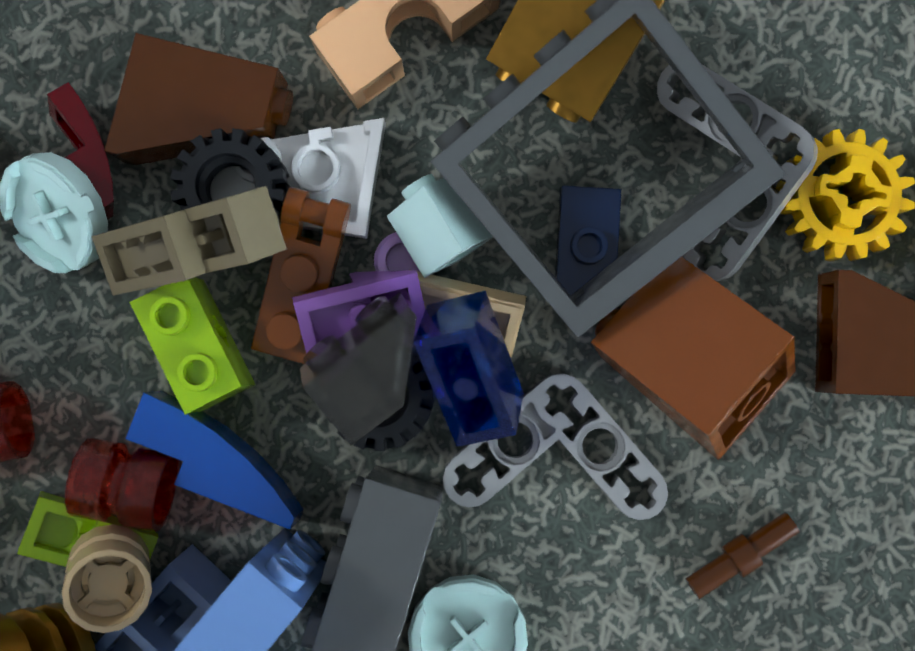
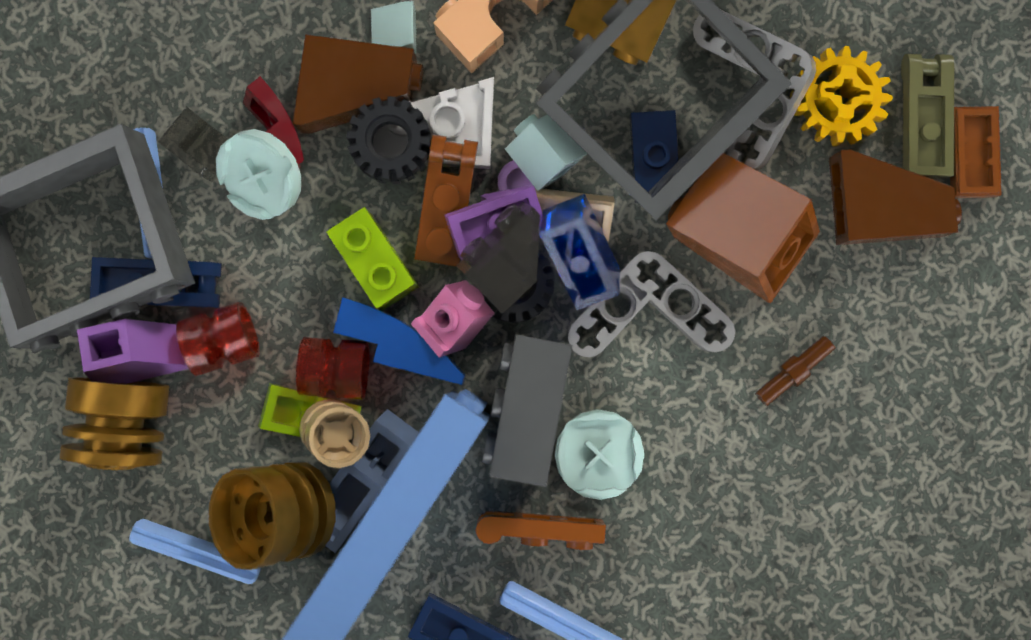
camera: 10 degrees left, 0 degrees up
(191, 242) = (367, 181): dark tan slope -> none
(263, 35) = (394, 25): none -> light aqua slope
(287, 440) = (453, 318): none -> bright pink brick

